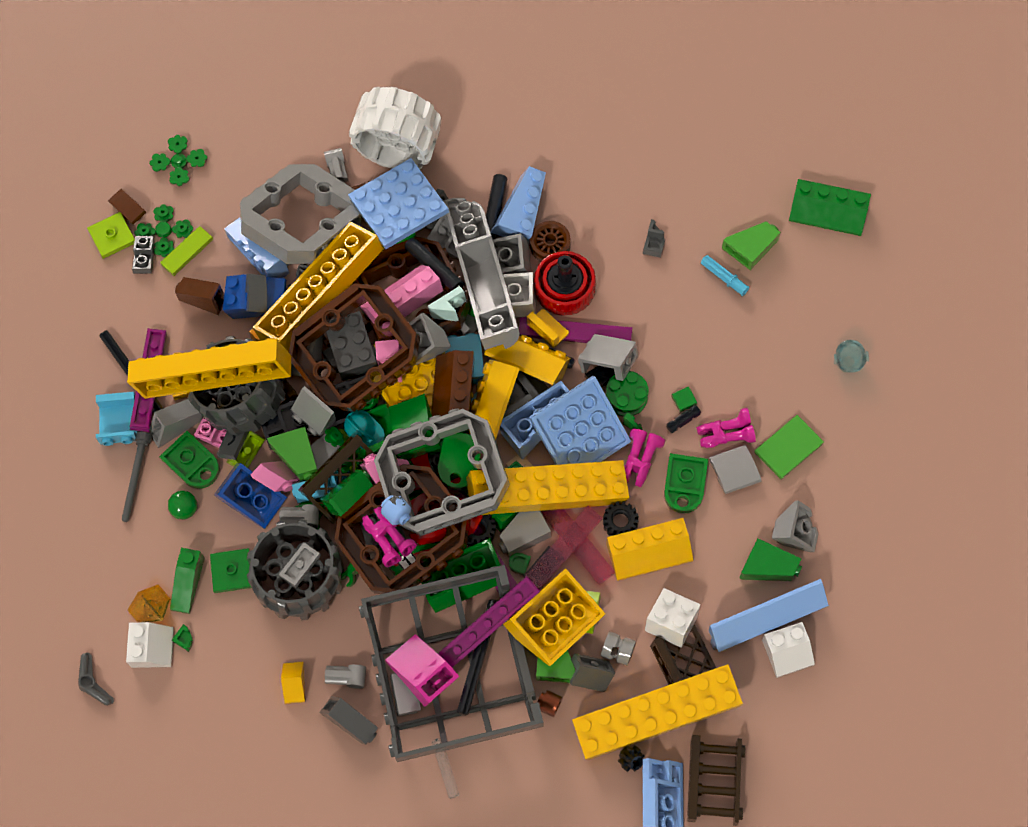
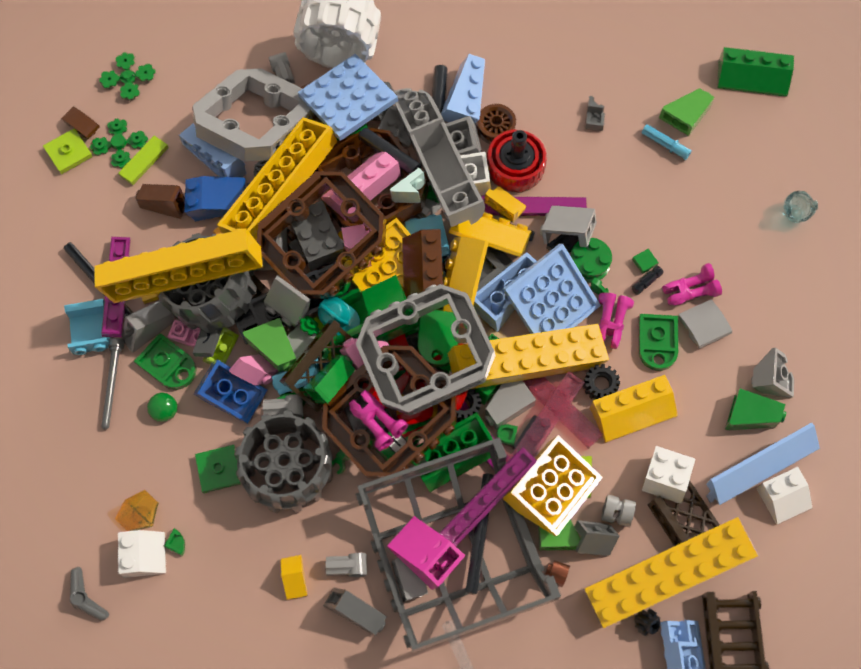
camera: 10 degrees left, 0 degrees up
(143, 255) = (101, 167): dark grey slope -> none
(186, 579) = (173, 482): green slope -> none
(256, 293) = (217, 192): dark grey slope -> none
(299, 565) = (290, 457): light grey plate -> none
(396, 510) = (384, 391): light blue head -> none
(432, 338) = (398, 221): light grey slope -> none
(789, 447) = (752, 298): bright green tile -> none

